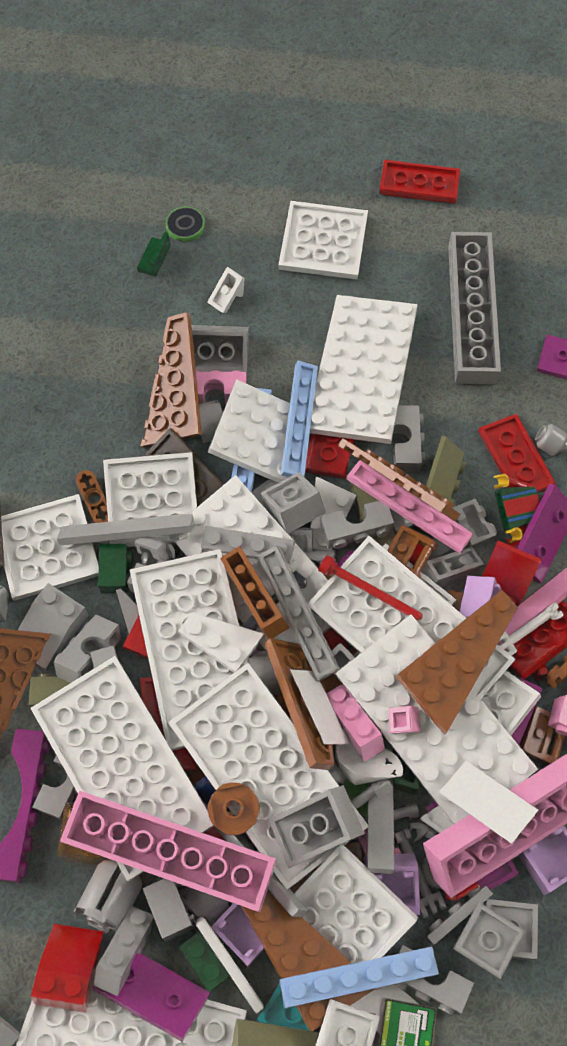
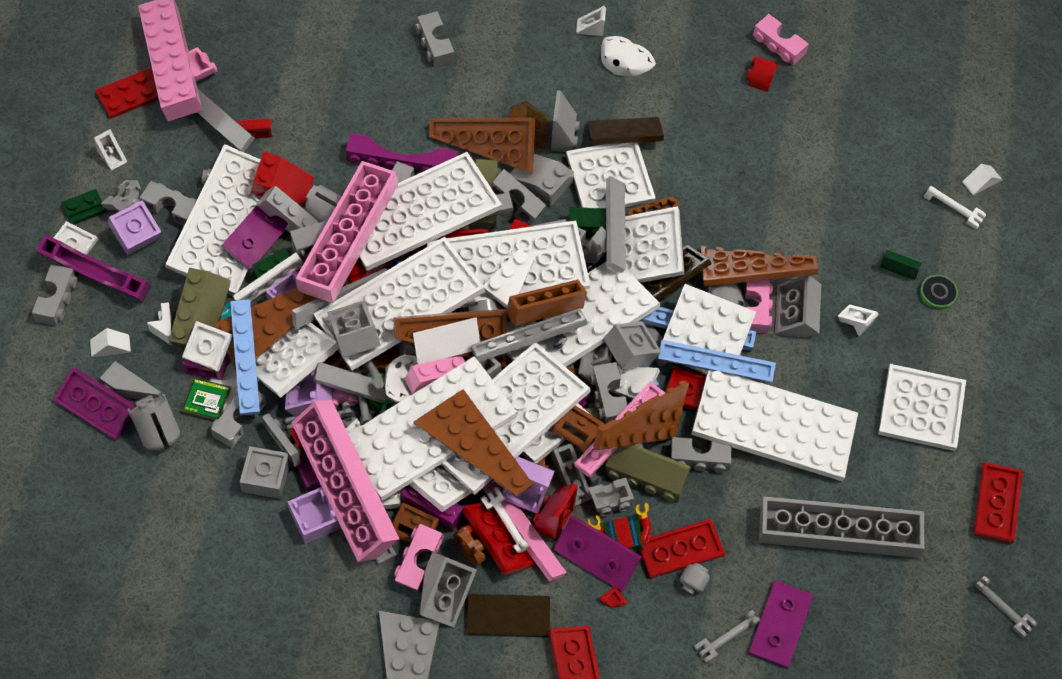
camera: 90 degrees right, 5 degrees down
(45, 183) = (981, 179): none -> white slope
(89, 192) = (975, 217): none -> white hinge
(225, 820) = (378, 285): dark orange plate -> none
(252, 544) = (595, 307): light grey plate -> none
(330, 567) = (564, 356): red piece -> none
(404, 719) = (428, 399): bright pink slope -> none
(488, 801) = (356, 447): white sticker -> none
(489, 940) = (257, 448): light grey tile -> none
(508, 197) = (1020, 622): none -> light grey hinge

